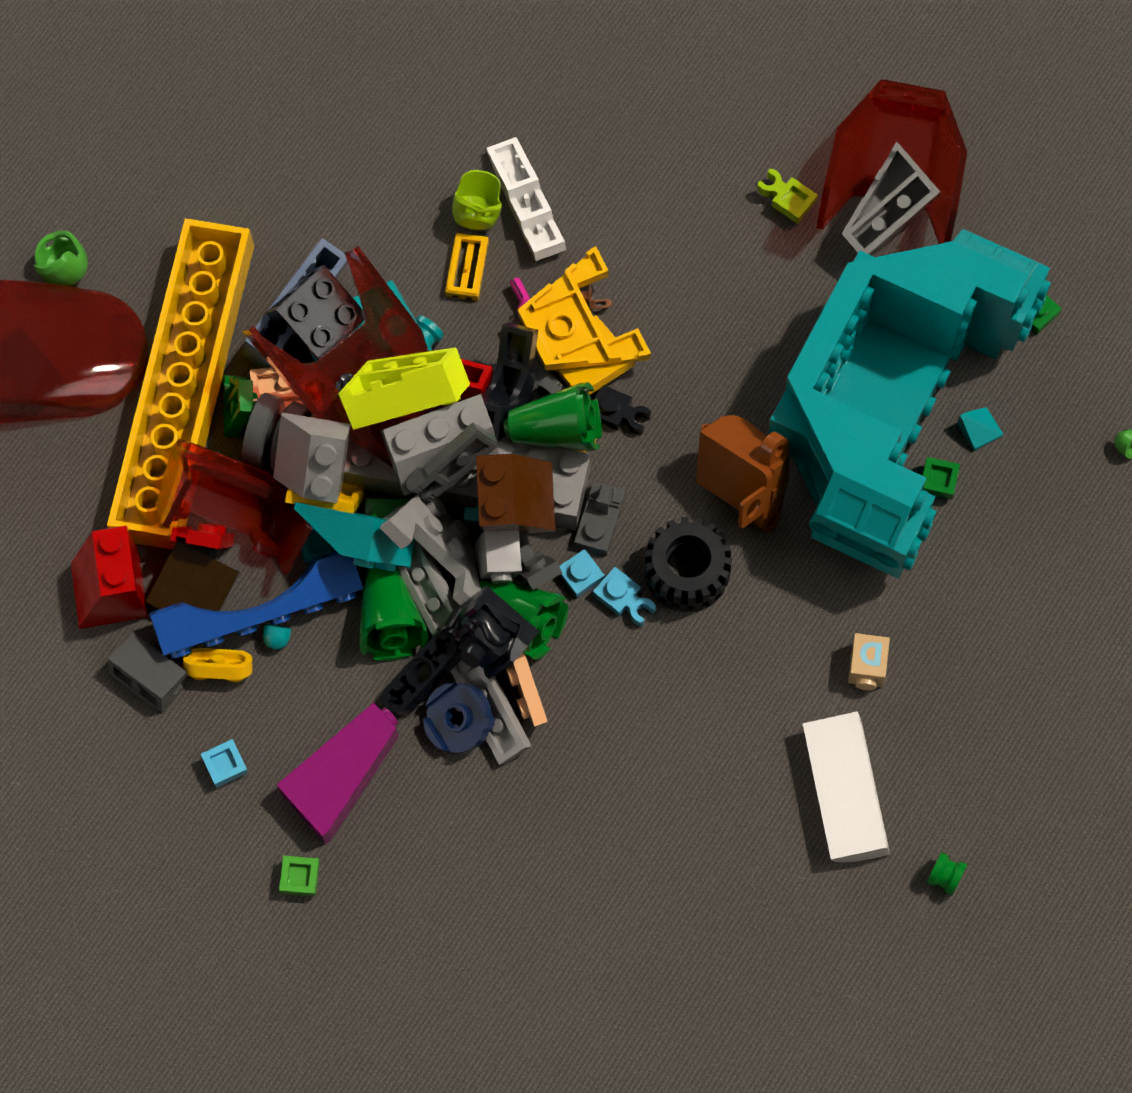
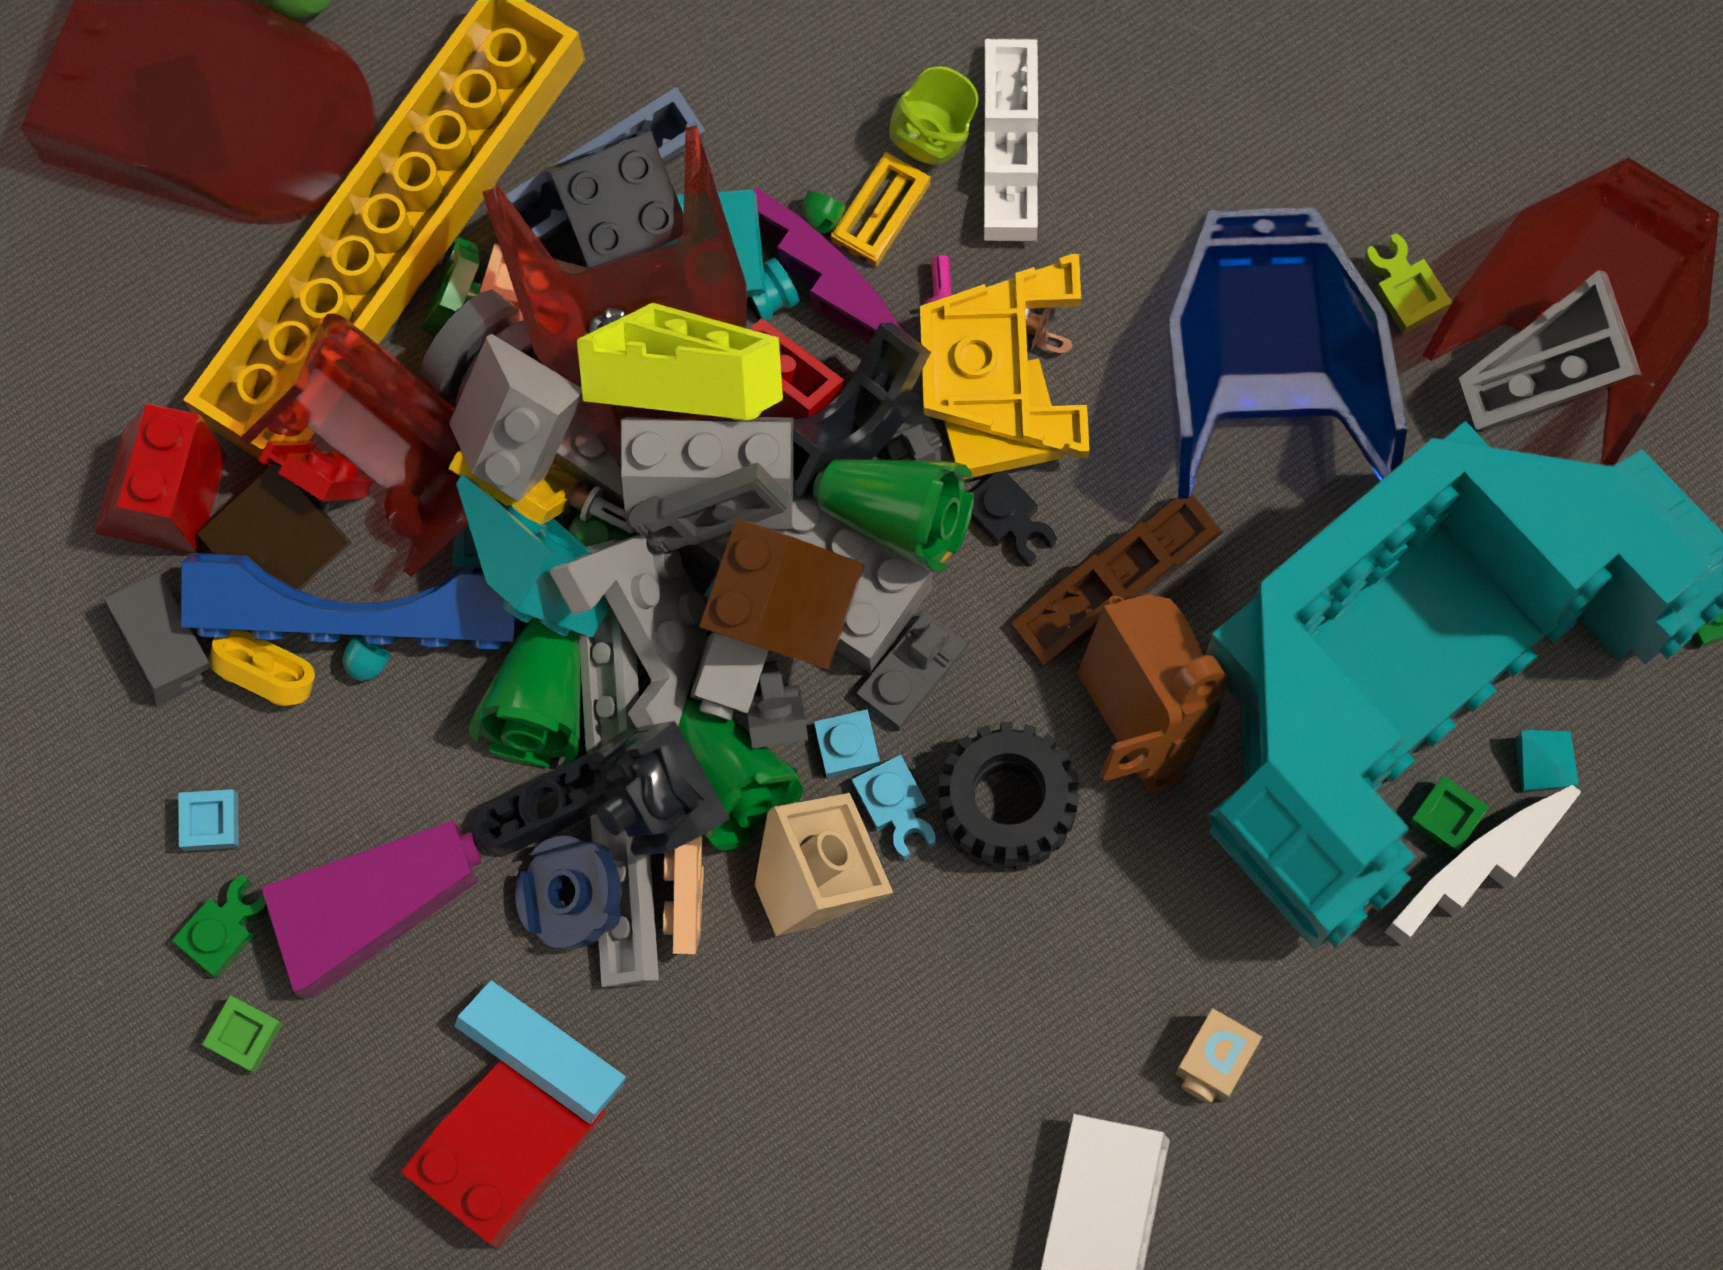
camera: 25 degrees right, 5 degrees up
(258, 826) = (217, 933): none -> green plate
(373, 494) = (592, 504): none -> white piece
(433, 280) = (821, 211): none -> green hinge
(465, 319) = (838, 287): none -> magenta slope
(479, 815) = (540, 1051): none -> medium azure tile
(481, 877) = (497, 1152): none -> red slope
(594, 646) = (817, 864): none -> tan slope
(701, 407) = (1125, 570): none -> reddish brown slope
(731, 245) = (1279, 329): none -> clear blue windscreen
(974, 489) = (1495, 854): none -> white slope

